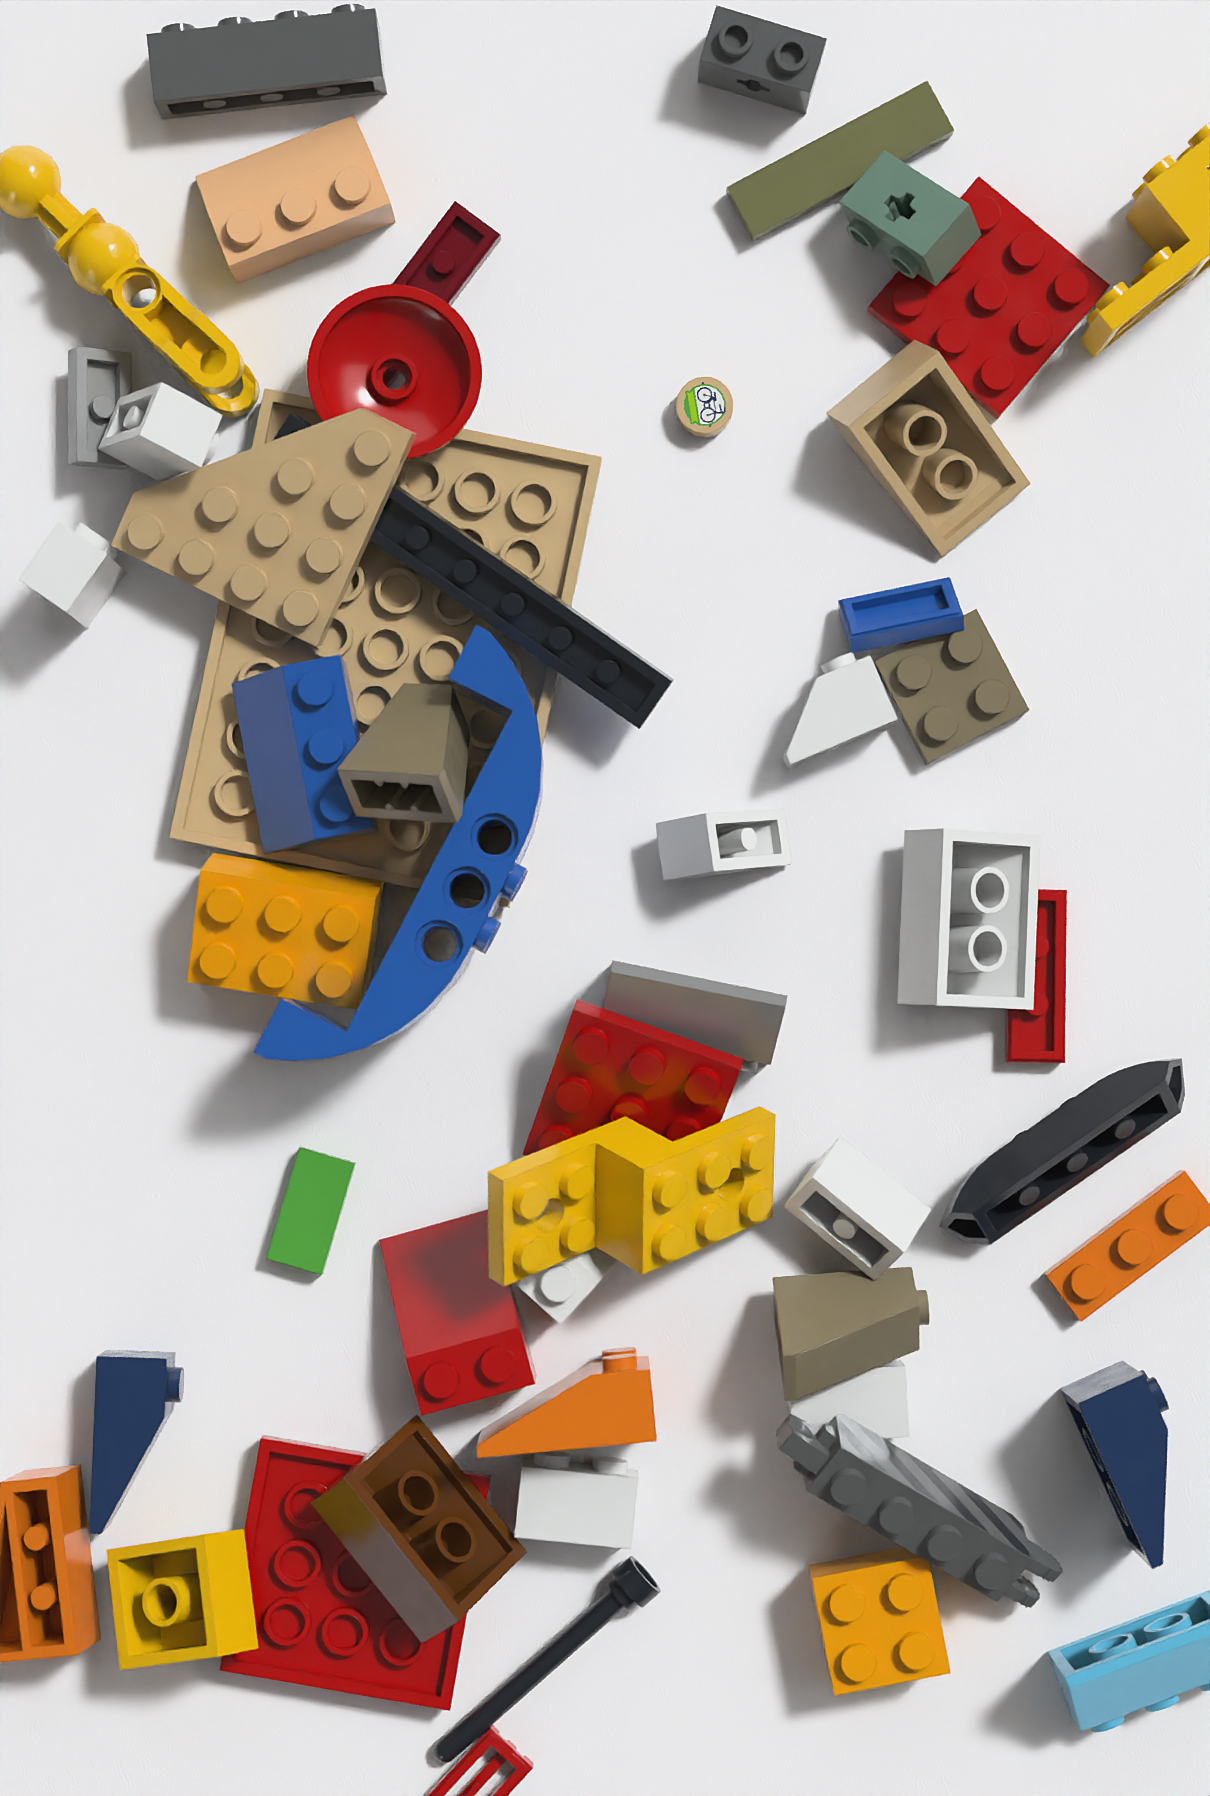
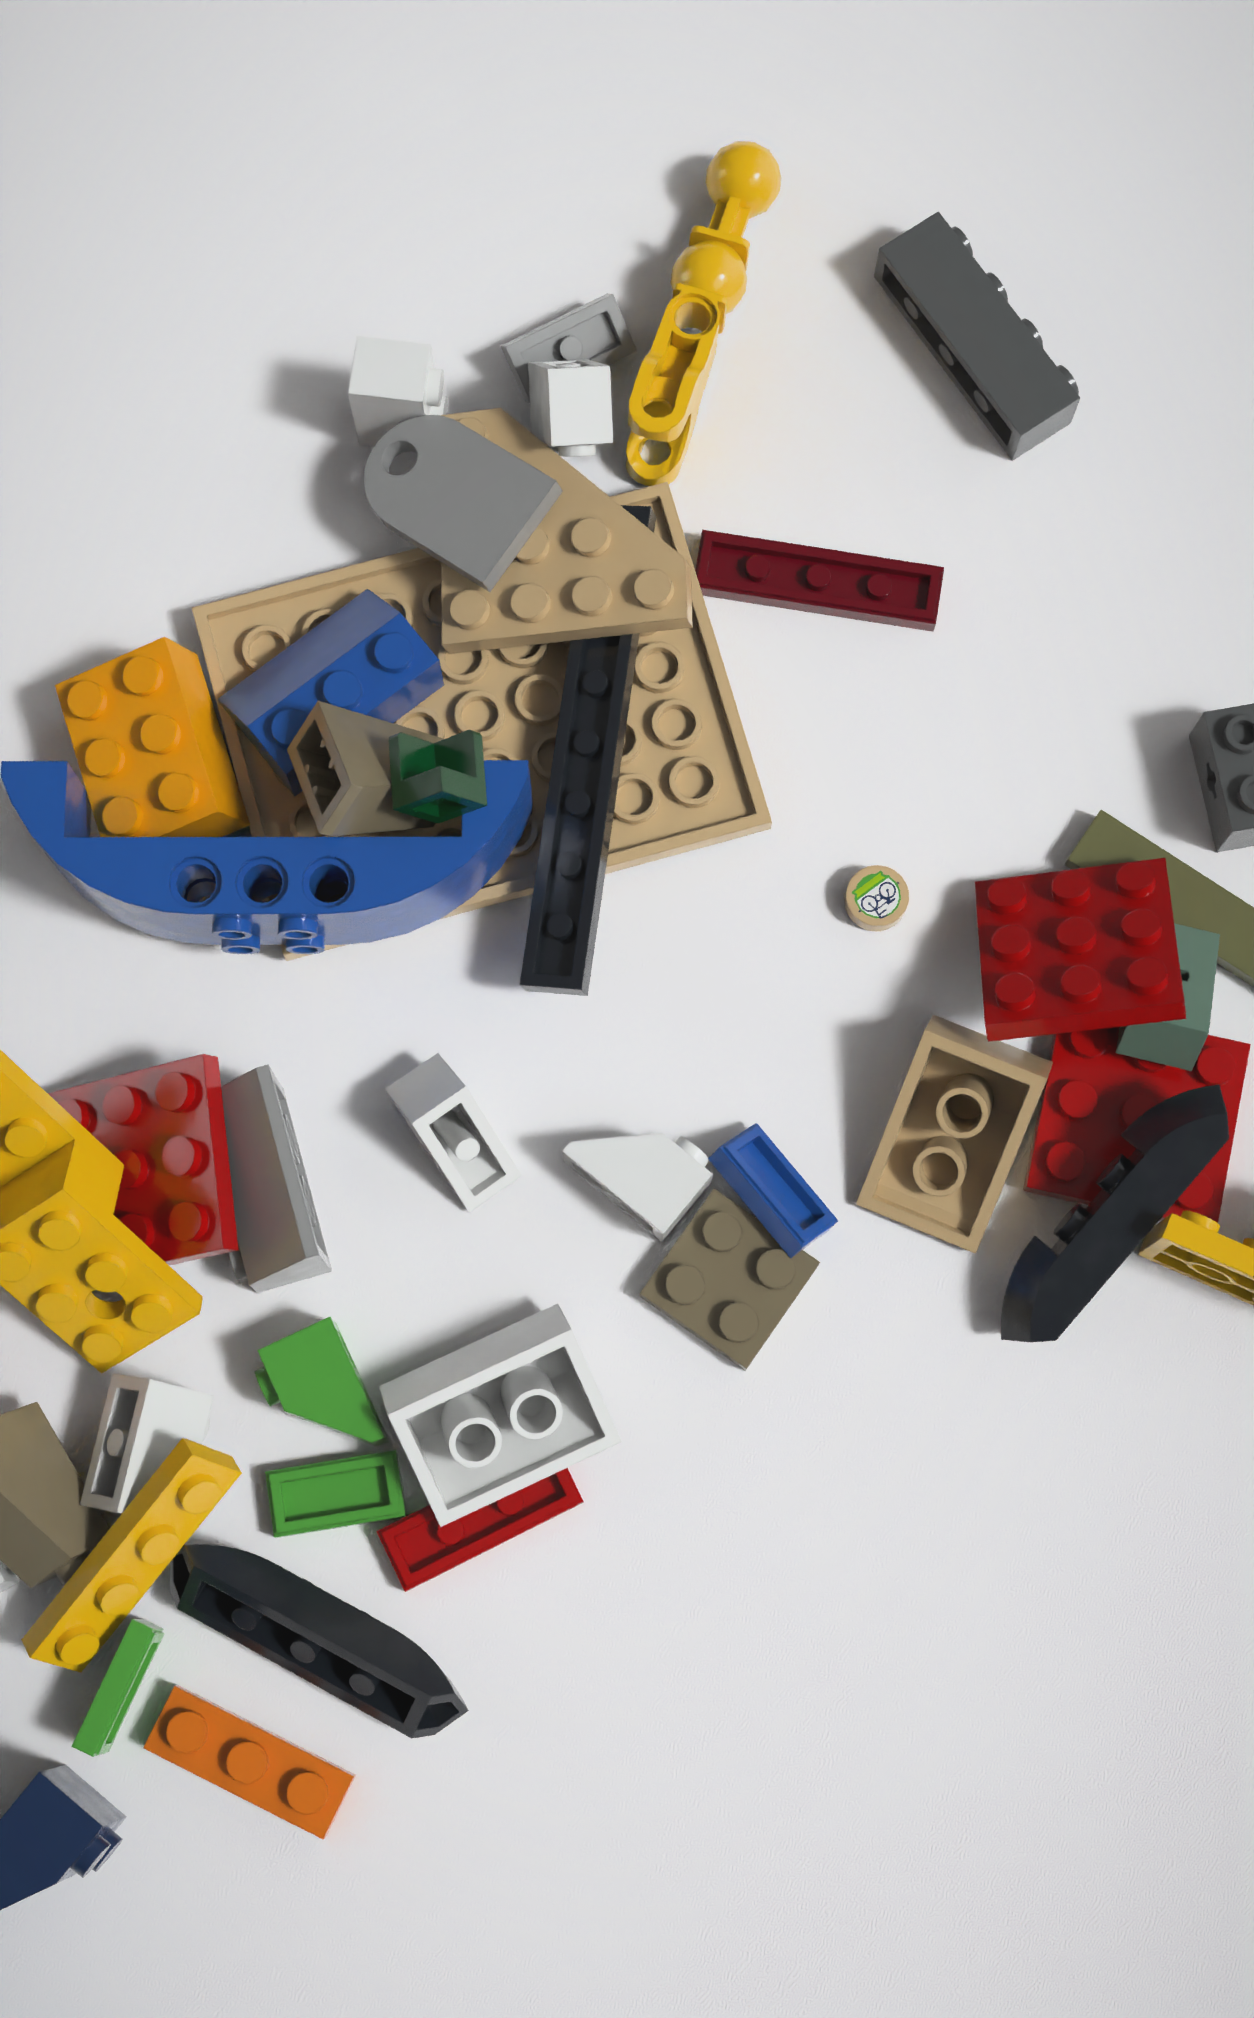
camera: 60 degrees right, 10 degrees down
(201, 565) = (460, 499): none -> light grey tile
(295, 199) = (861, 424): light nougat slope -> none
(405, 333) = (774, 553): red dish -> none
(453, 702) = (438, 777): none -> dark green panel
(842, 268) = (1078, 950): none -> red plate
(872, 1048) = (320, 1382): none -> bright green slope
(938, 1257) = (131, 1555): none -> yellow plate
(960, 1079) = (335, 1494): none -> bright green tile
(1027, 1318) = (119, 1688): none -> bright green tile
(1062, 339) = (1171, 1150): none -> black brick

